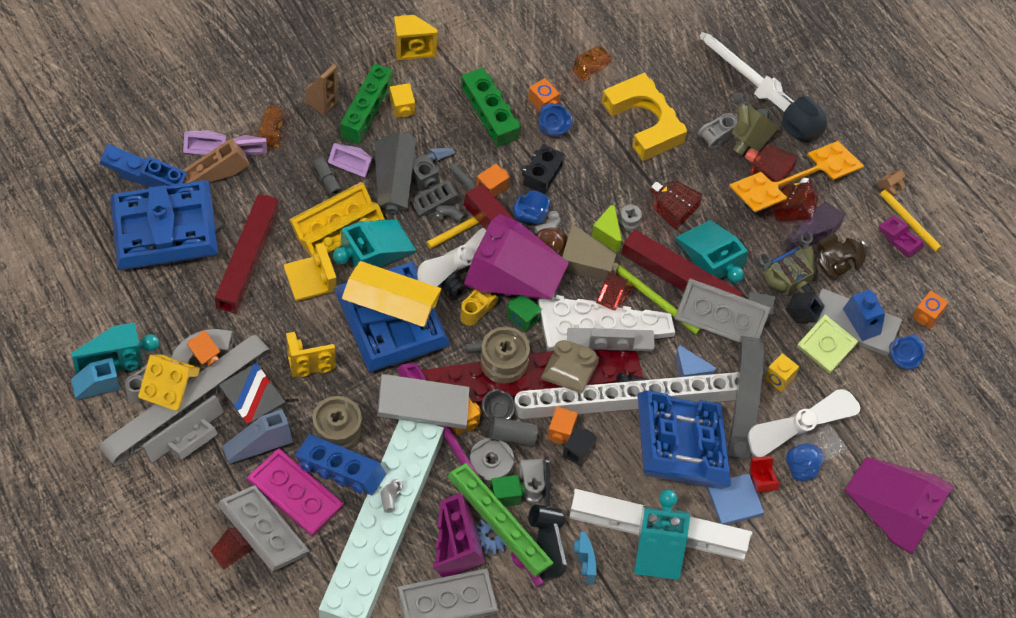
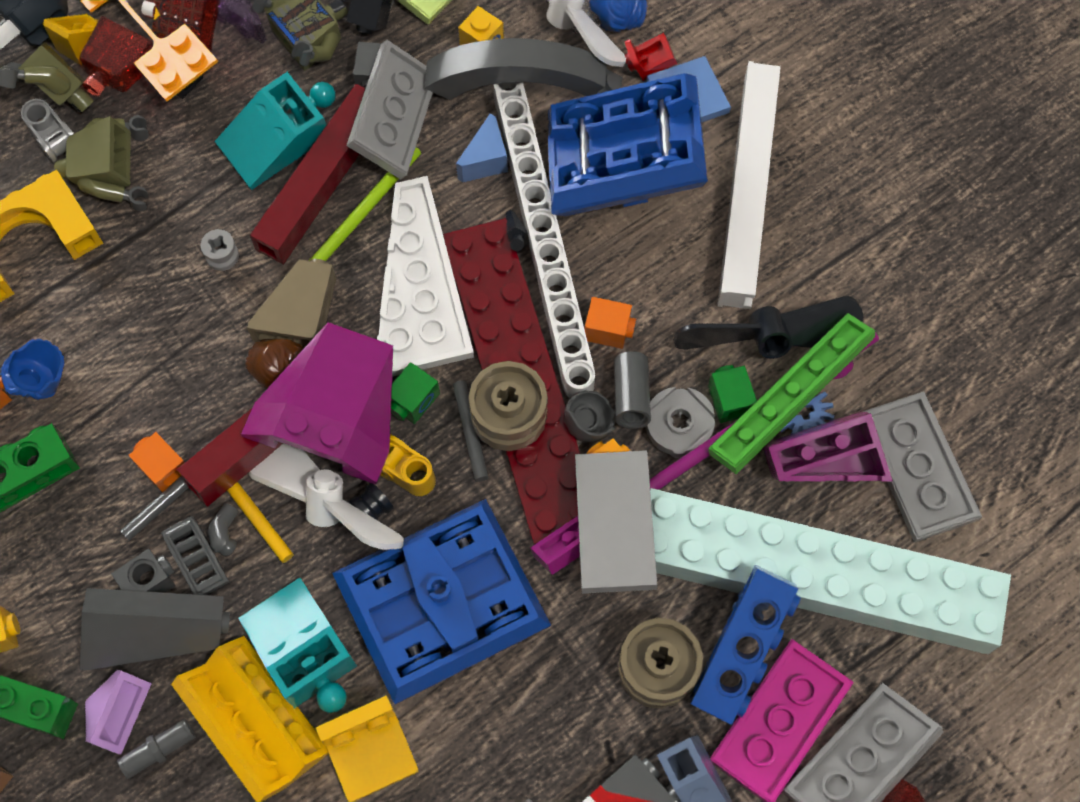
camera: 90 degrees left, 10 degrees up
(310, 360) = (537, 748): yellow bracket -> none
(388, 493) = (793, 556): light grey arm -> none
(391, 293) = (426, 588): yellow slope -> none
(440, 153) = (100, 560): sand blue bar -> none
(531, 207) = (212, 394): blue hair -> none
(533, 479) = (700, 357): light grey piece -> none
(546, 170) = (134, 378): black brick -> none
(552, 221) = (235, 367): light grey arm -> none
(570, 366) = (513, 311): dark tan slope -> none
(579, 446) = (642, 293): black brick -> none
(586, 556) = (809, 278): dark azure slope -> none
(607, 229) = (244, 278): lime slope -> none
(612, 339) = (456, 260): light grey bracket -> none
(614, 291) = (365, 261): clear red slope -> none
(661, 543) = (782, 166): teal slope -> none
(675, 202) = (188, 186): clear red torso -> none
(696, 155) = (100, 159): none -> olive torso
(788, 140) = (70, 34): none -> yellow slope

